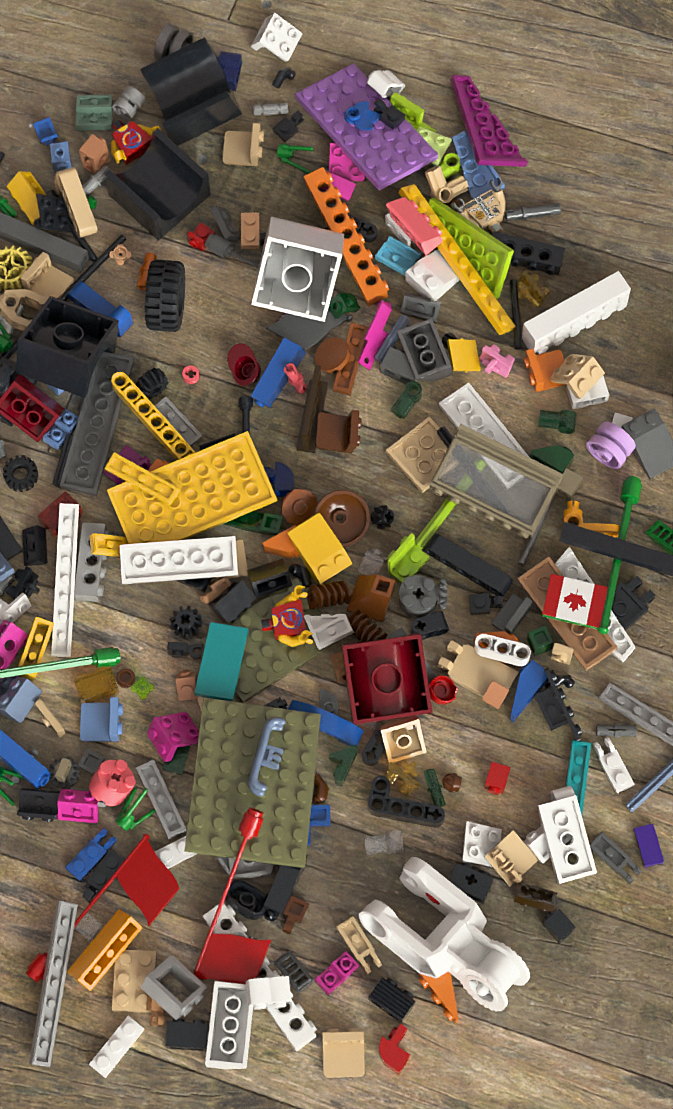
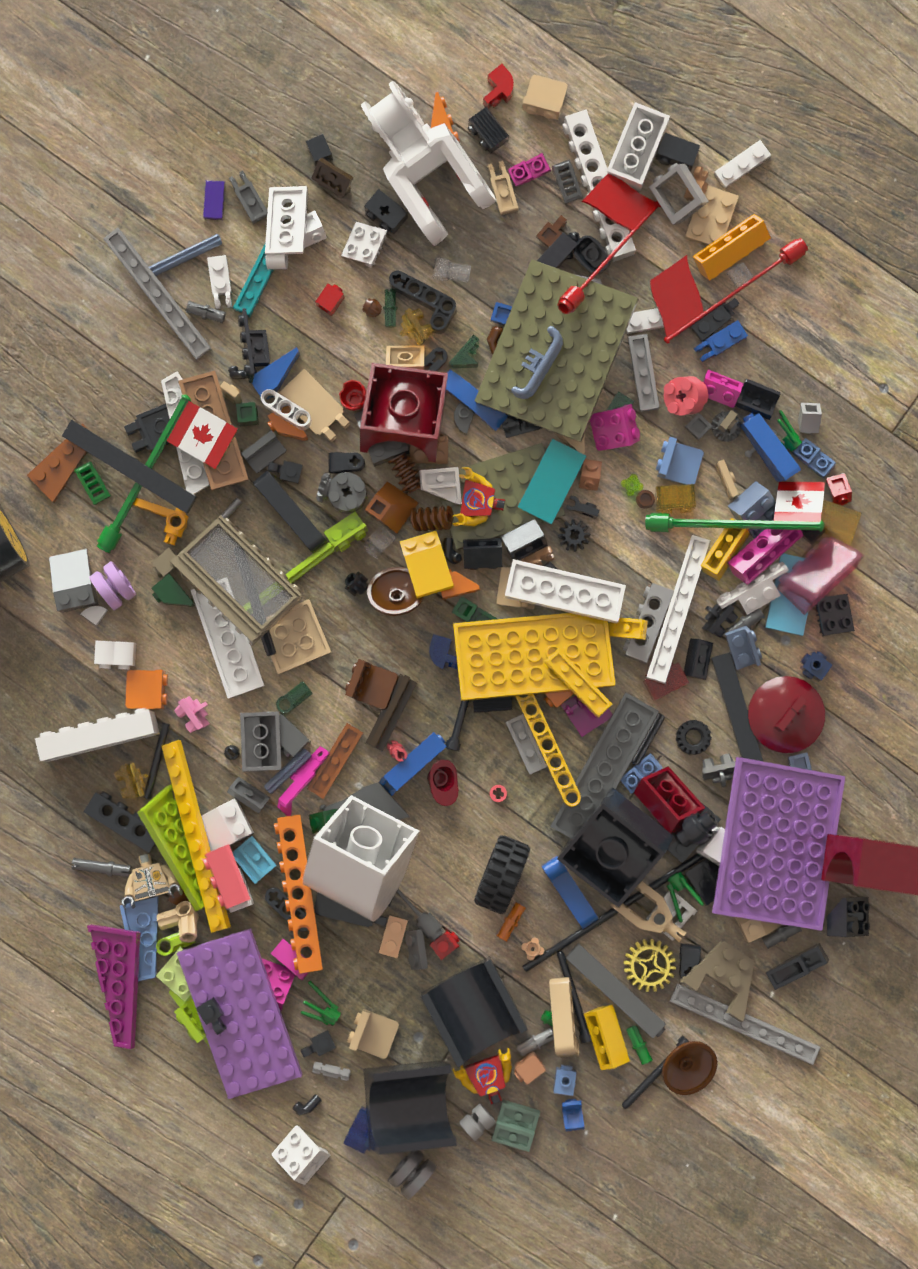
camera: 165 degrees left, 15 degrees up
(45, 278) = (615, 939): tan bracket -> none
(52, 214) = (591, 1009): black hinge -> none
(53, 984) = (785, 231): light grey tile -> none
(125, 818) = (679, 362): green plant -> none
(152, 382) = (539, 791): black gear -> none
(268, 992) = (597, 158): white brick -> none
(298, 506) = (432, 617): dark orange tile -> none
(332, 355) = (352, 768): dark orange tile -> none
(361, 116) = (238, 1020): blue plate -> none
(385, 83) = (204, 1059): white brick -> none
(463, 355) = (222, 730): yellow piece -> none
(495, 695) = (306, 375): nougat slope -> none
(511, 858) = (342, 221): tan hinge -> none
(563, 420) = (151, 631): clear green piece -> none
(578, 373) = (119, 670): tan bracket -> none

